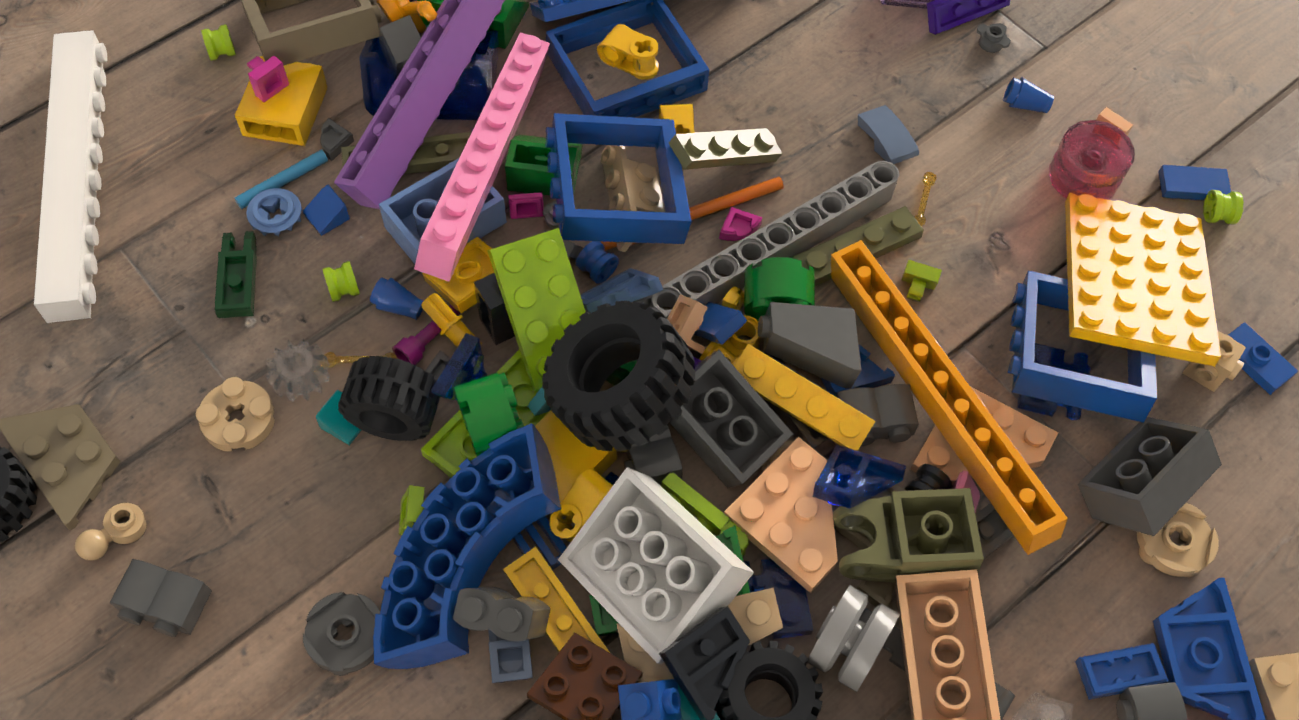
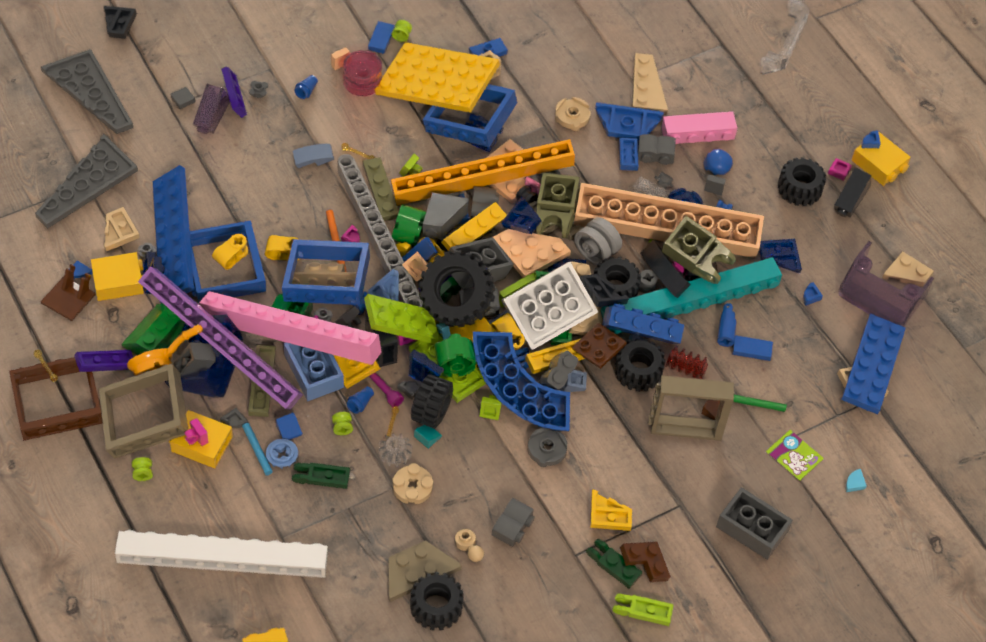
camera: 80 degrees left, 5 degrees down
(446, 319) = (386, 374): yellow axle -> none
(725, 148) = (312, 223): plate -> none
(1150, 475) = (545, 109): dark grey brick -> none

